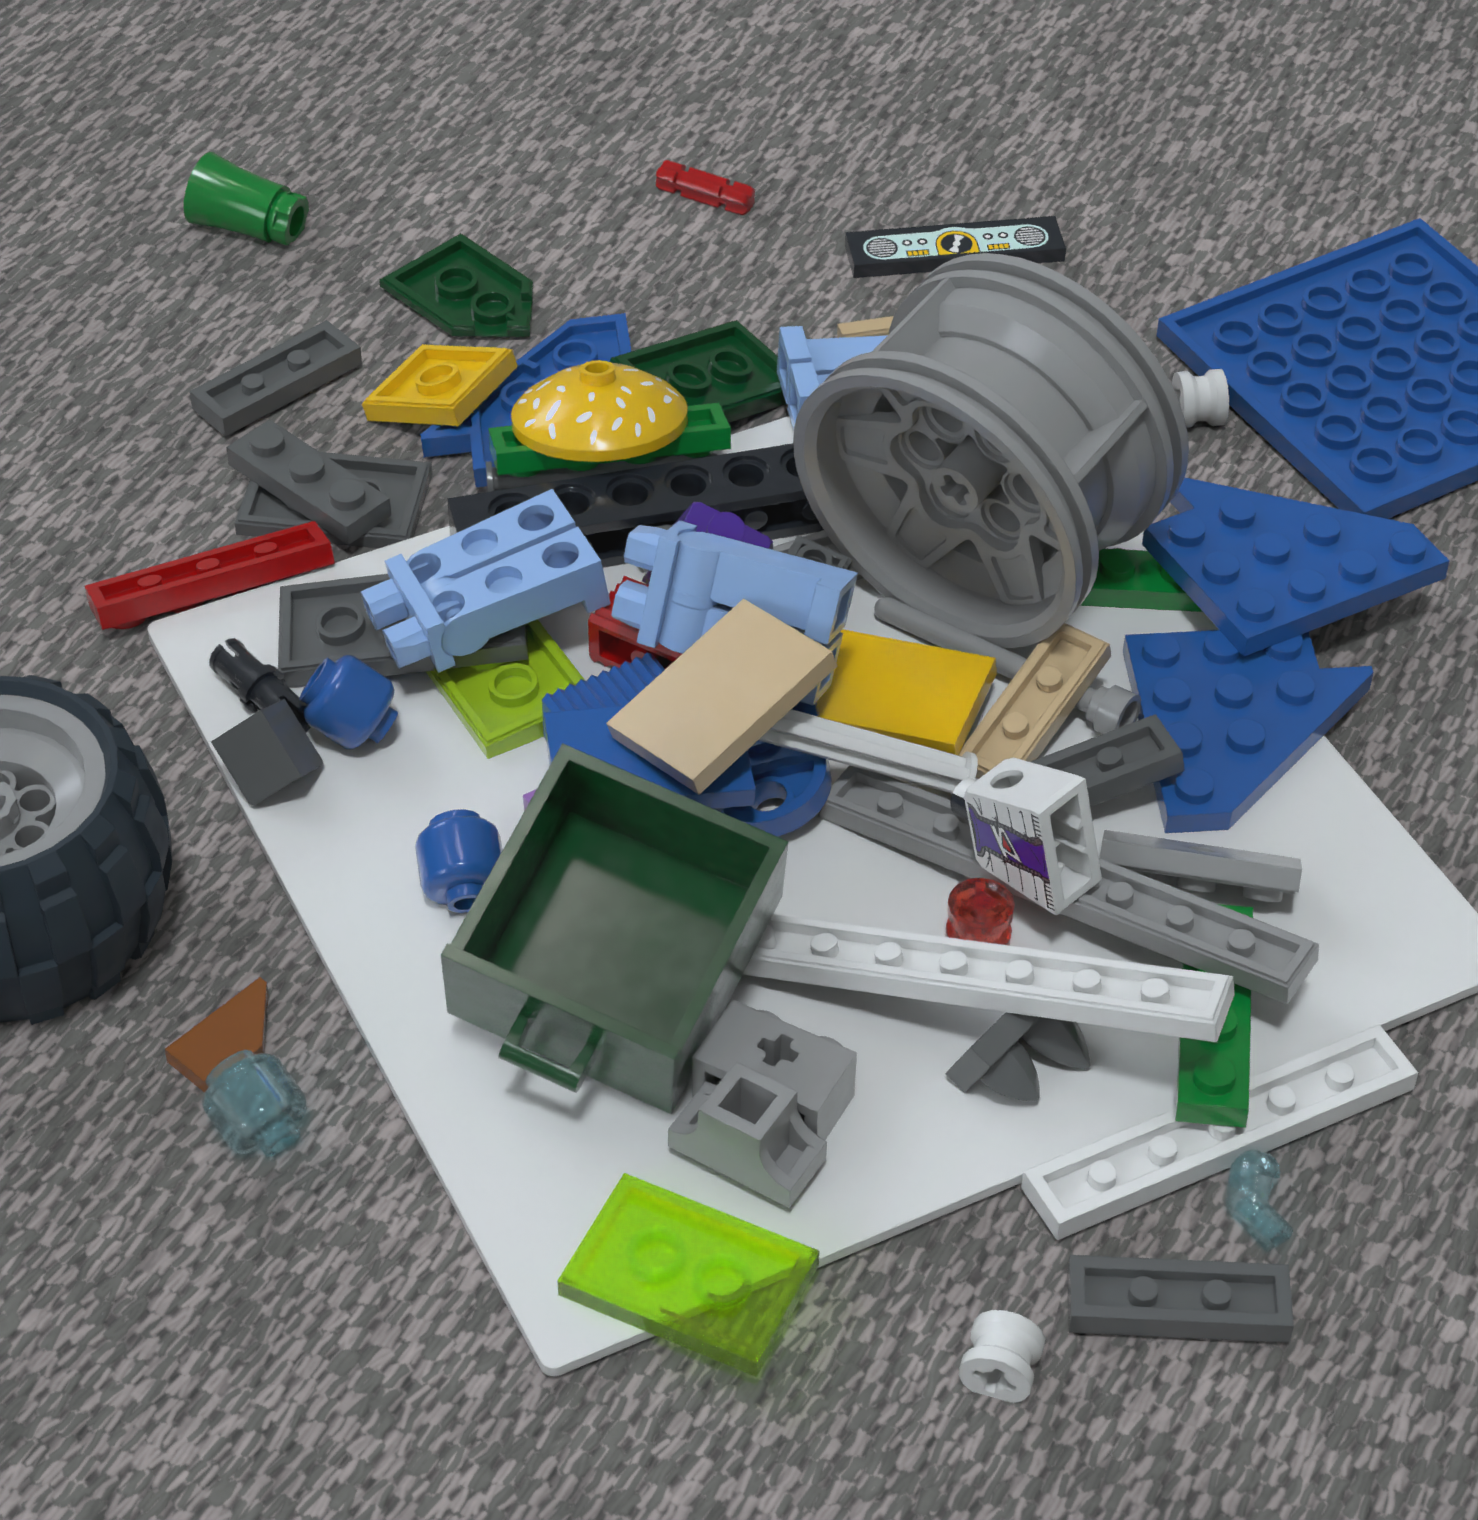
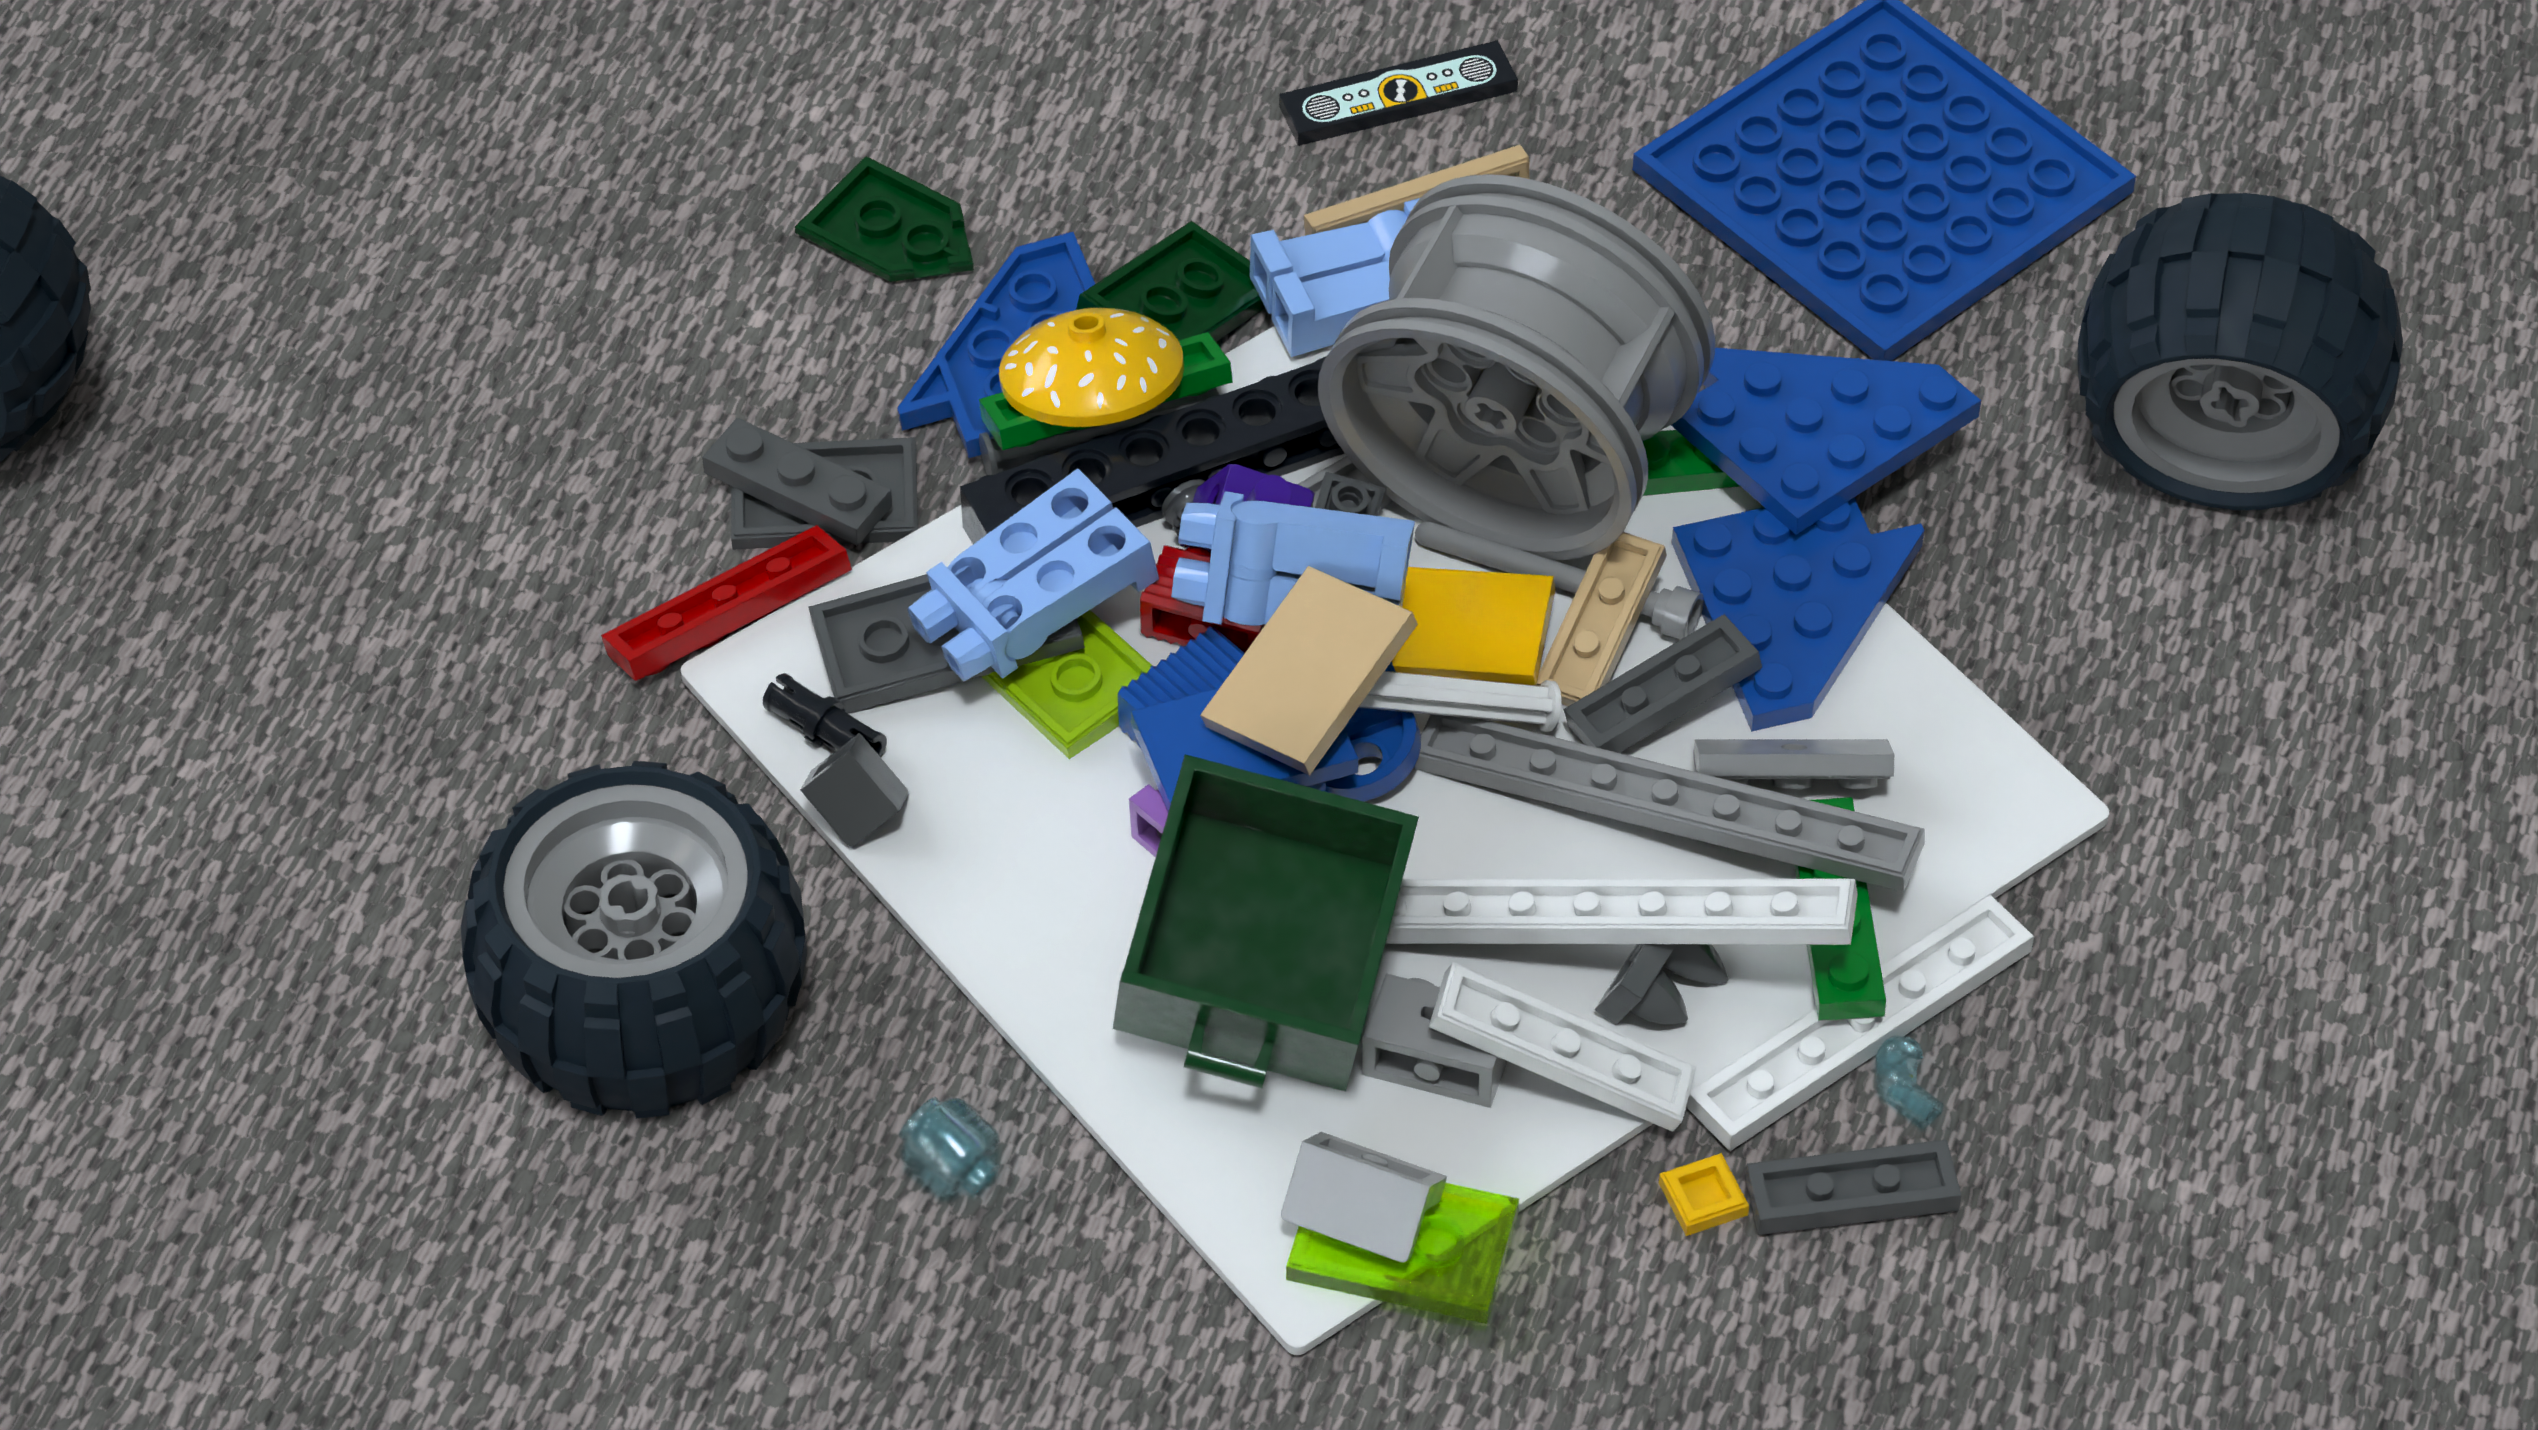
camera: 10 degrees left, 5 degrees up
(229, 1029) = (894, 1088): dark orange tile -> none
(242, 202) = (623, 155): green plant -> none
(275, 378) = (721, 362): dark grey plate -> none
(349, 702) = (922, 724): blue head -> none
(440, 385) = (900, 346): yellow tile -> none
(456, 857) = (1081, 873): blue head -> none
(649, 1218) = (1360, 1196): none -> light grey panel
(705, 187) = (1113, 58): red axle -> none
(750, 1134) = (1430, 1100): light grey brick -> none
(898, 1102) = (1562, 1046): none -> white tile
(980, 912) = (1597, 834): clear red wheel -> none
(1002, 1355) = (1704, 1267): white wheel -> none
(1020, 1279) = (1703, 1194): none -> yellow tile
(1032, 830) = (1634, 759): white torso -> none
(1202, 397) = (1694, 240): white wheel -> none

